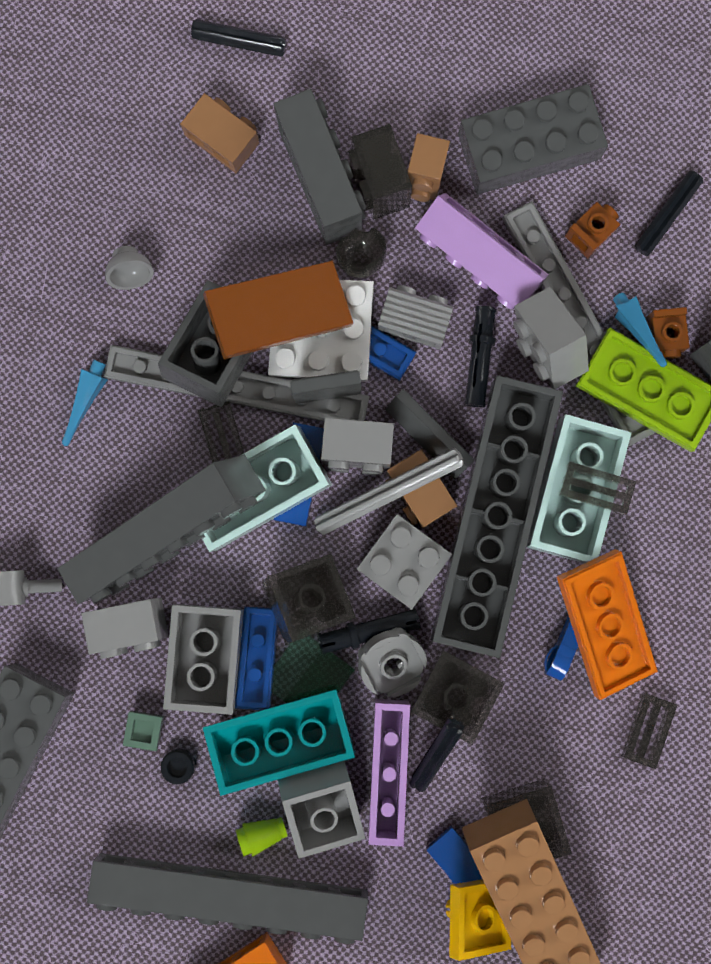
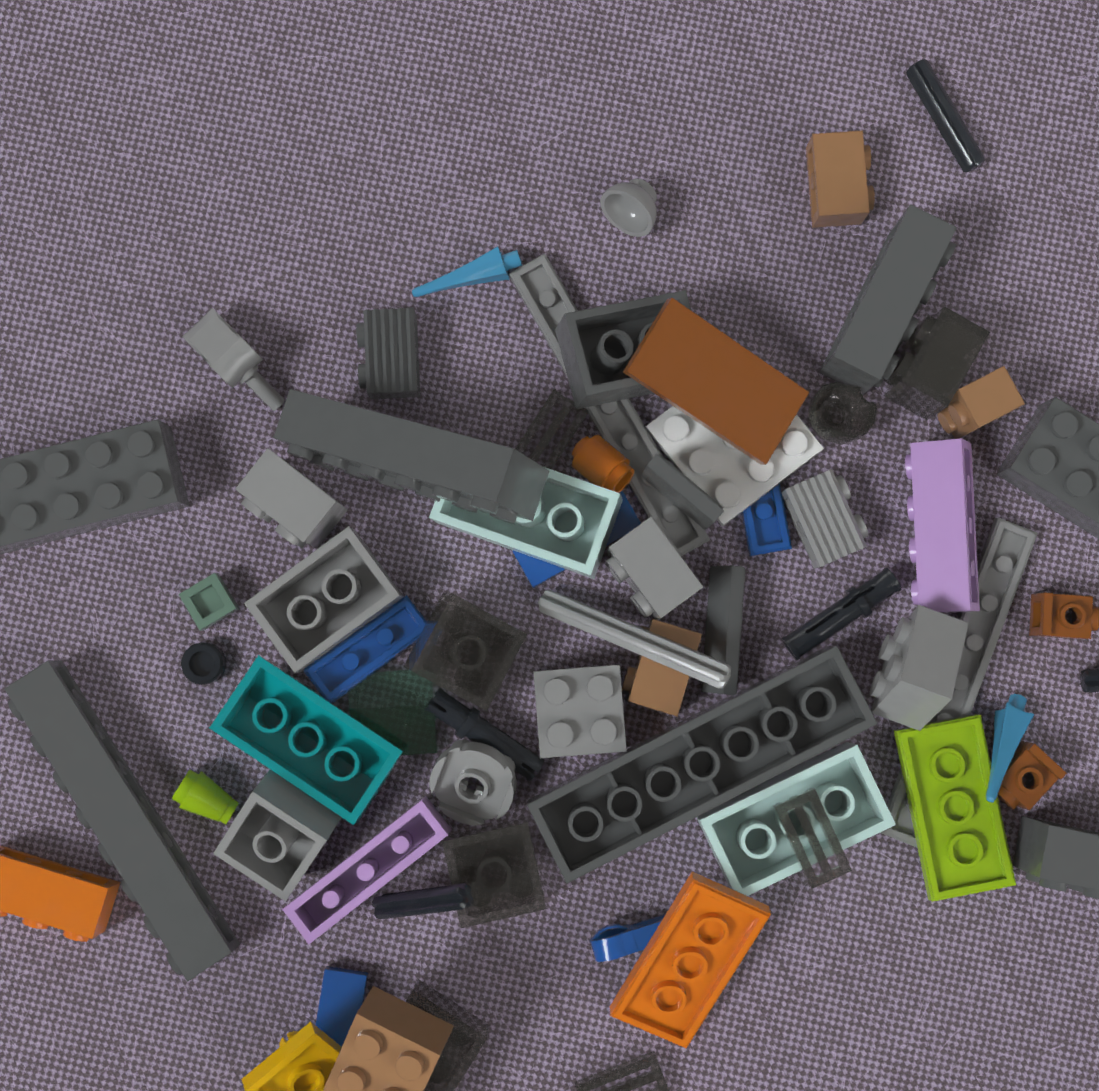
camera: 50 degrees right, 0 degrees up
(89, 490) = (390, 353): none -> dark grey brick
(267, 420) = (602, 463): none -> orange brick

